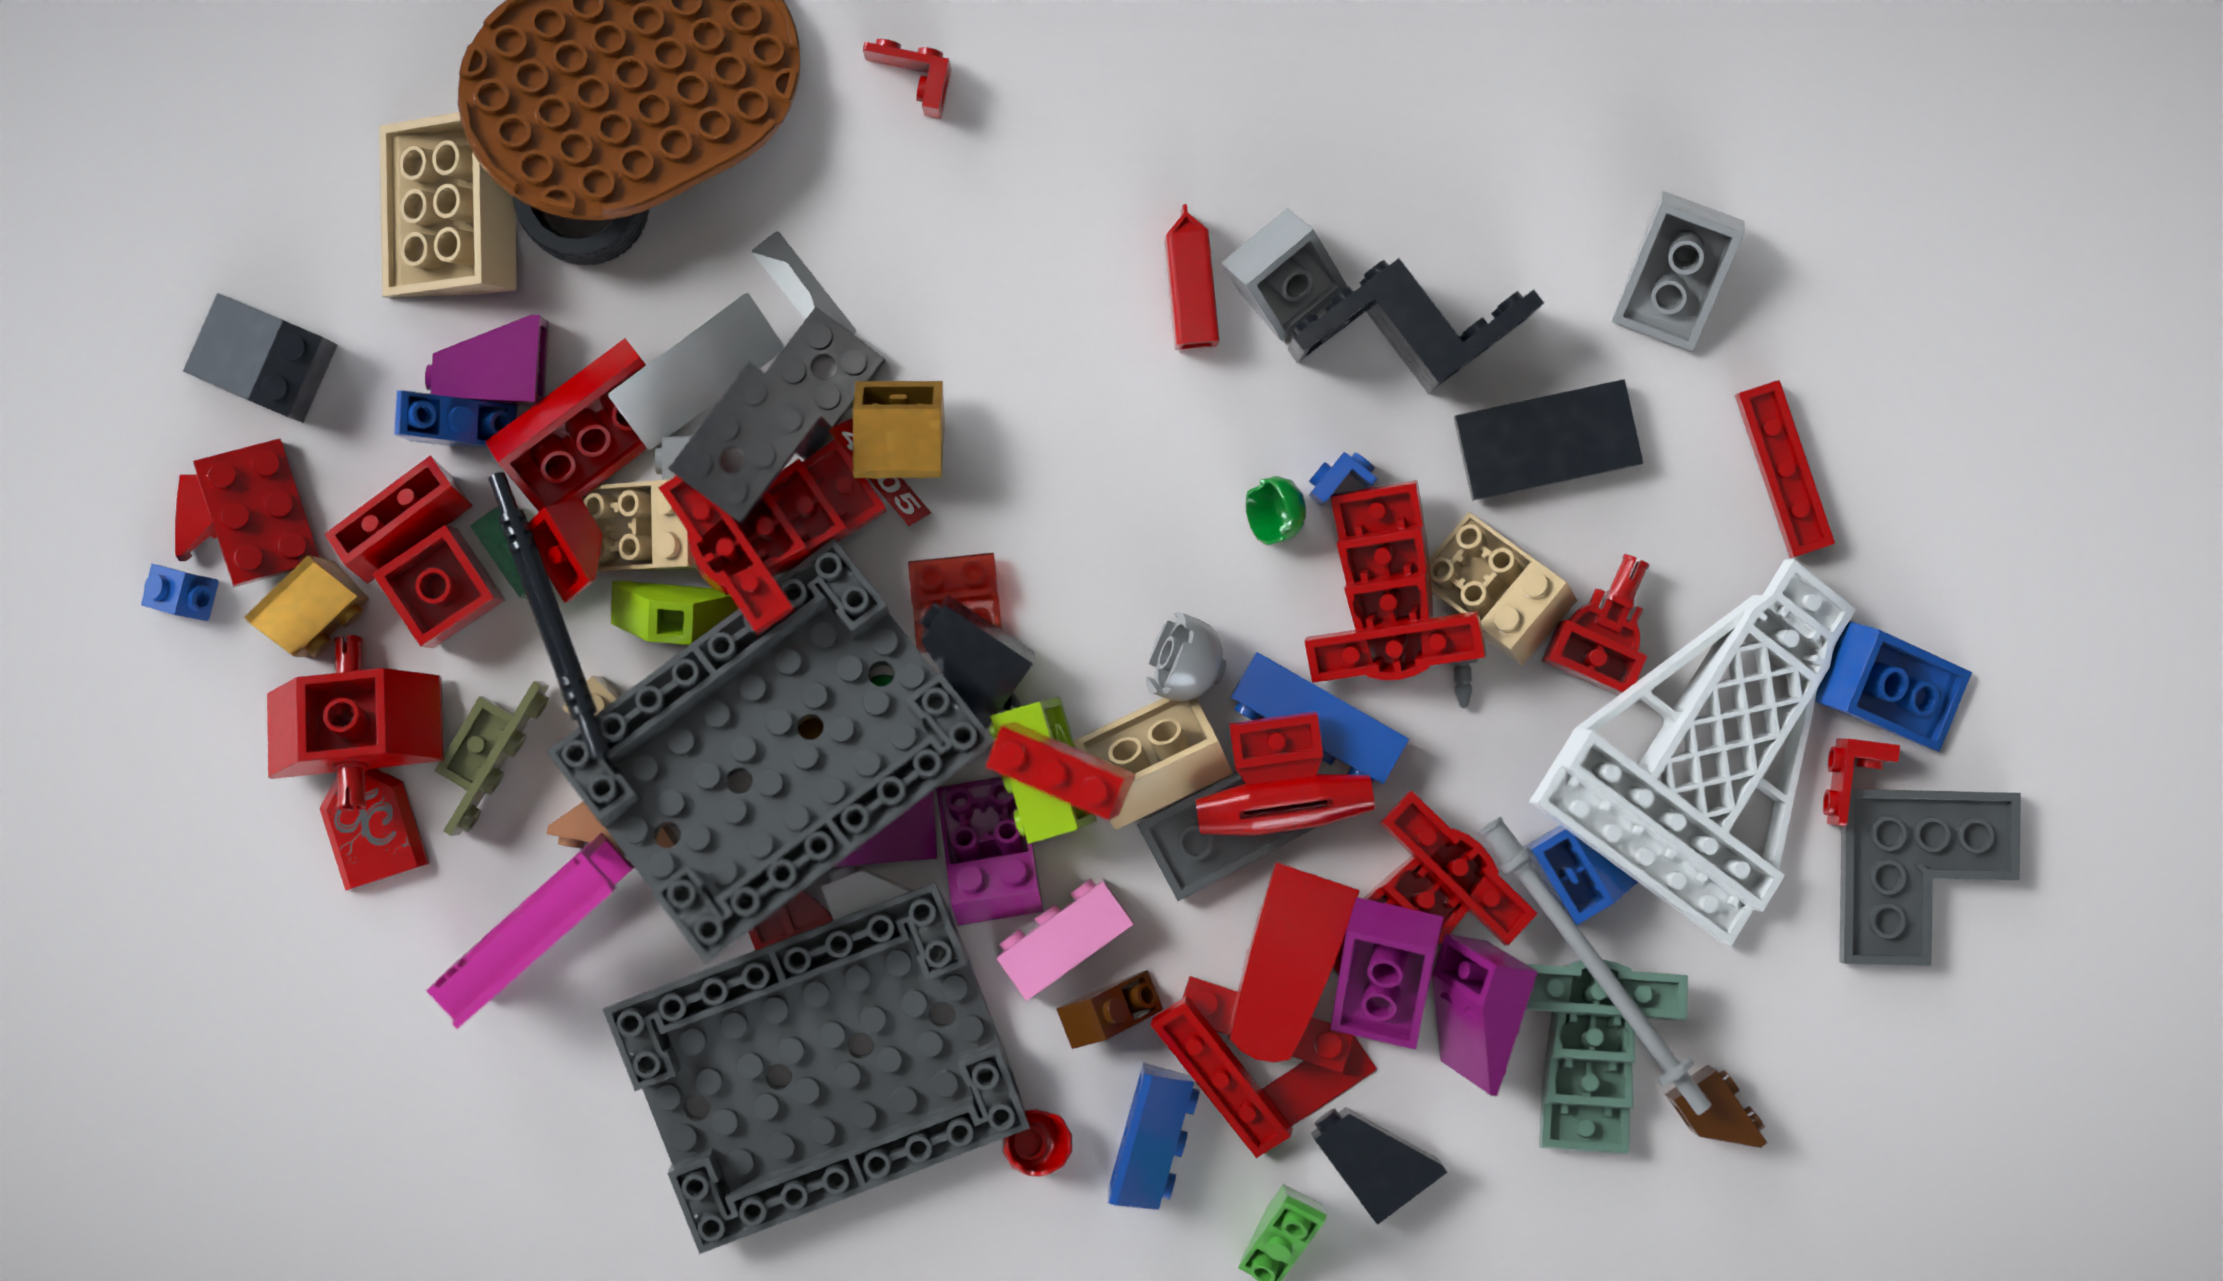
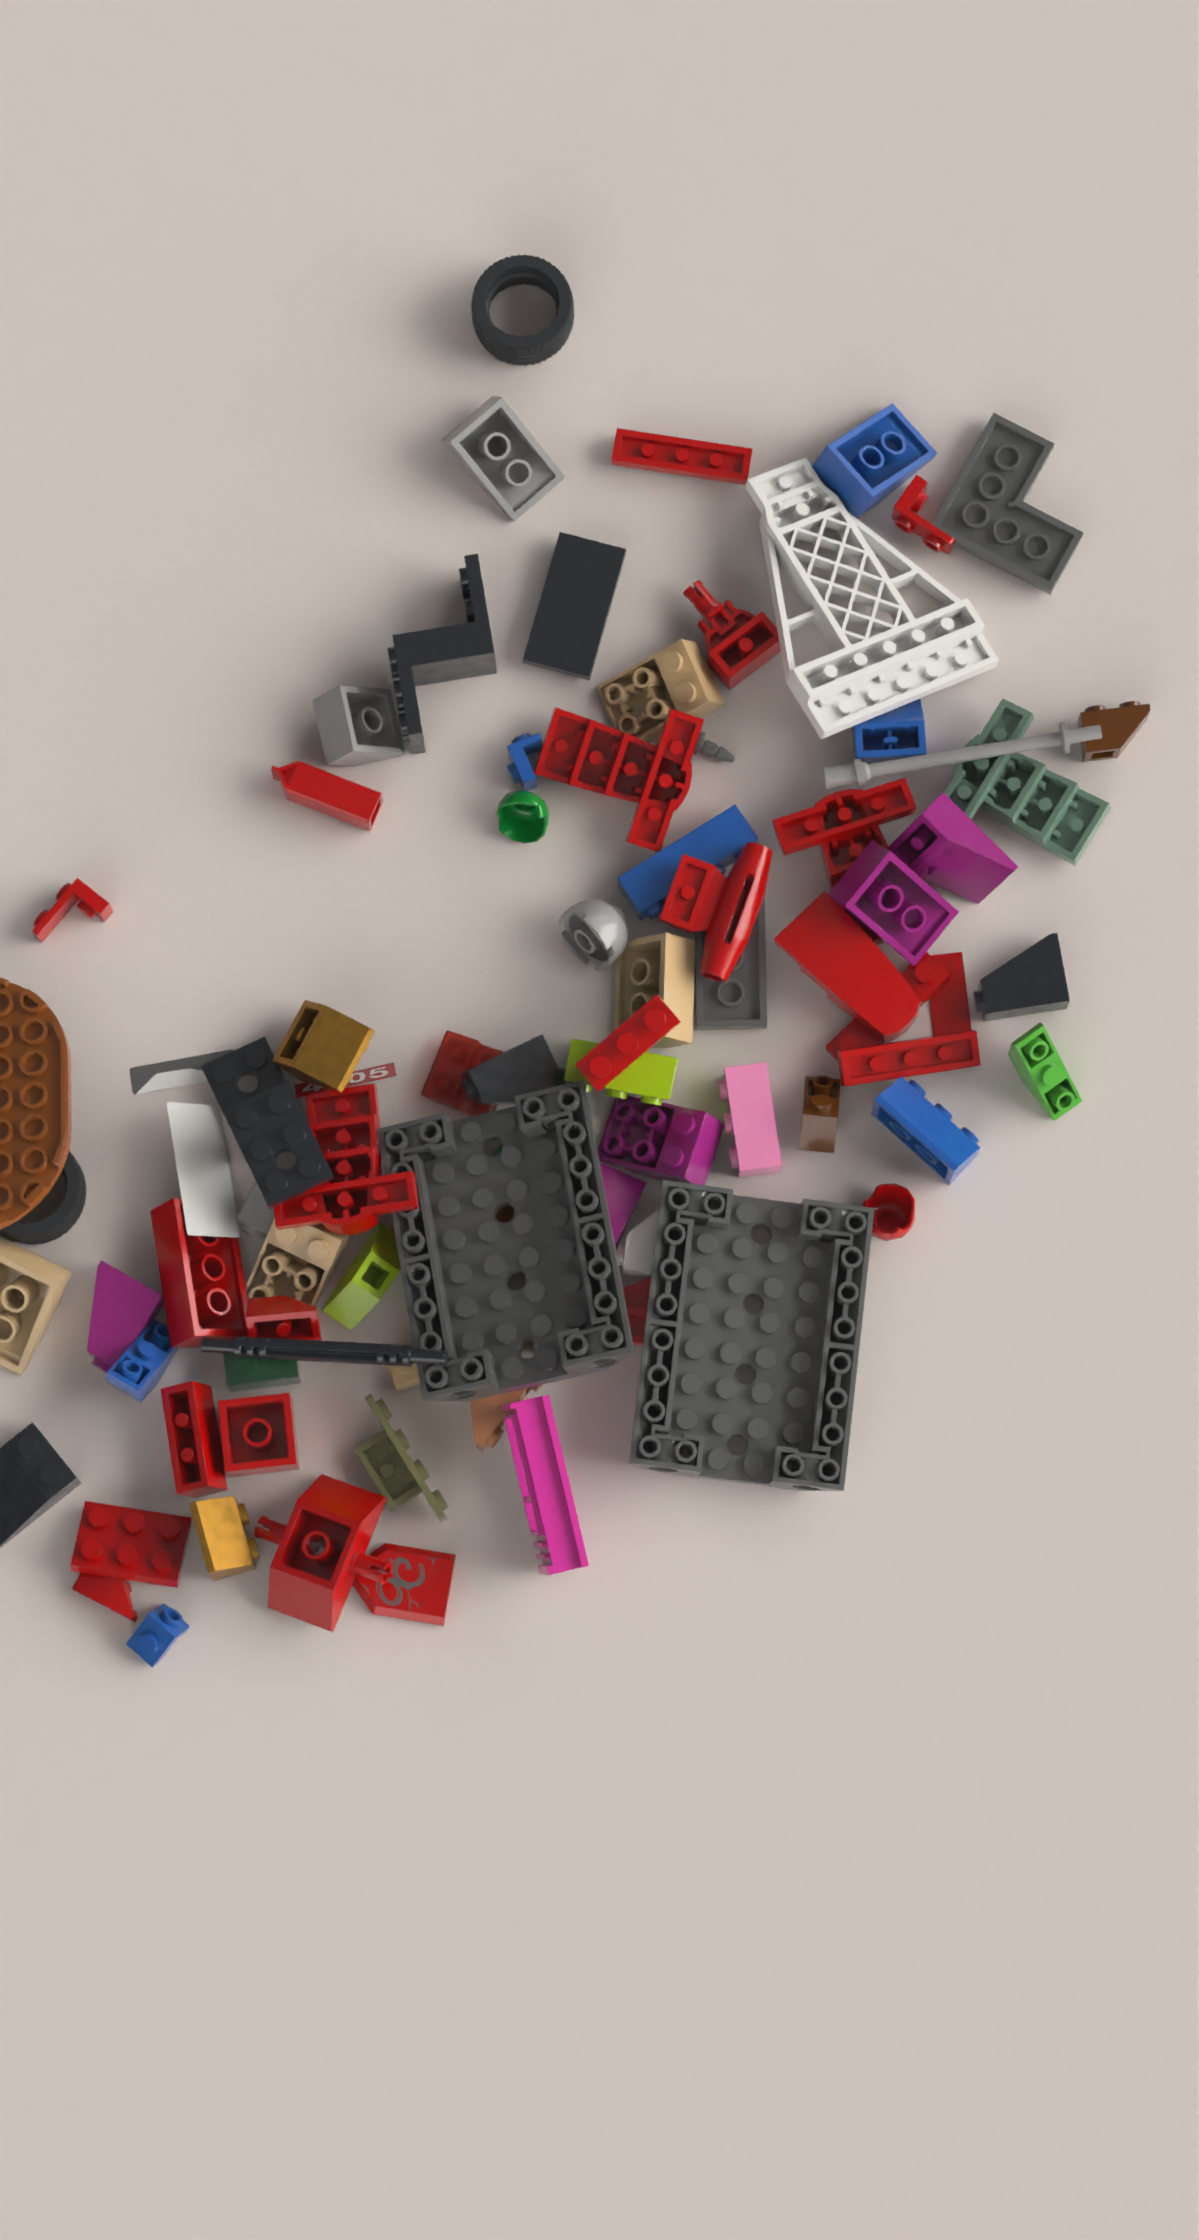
camera: 60 degrees left, 10 degrees down
(1905, 171) = (517, 271): none -> black tyre

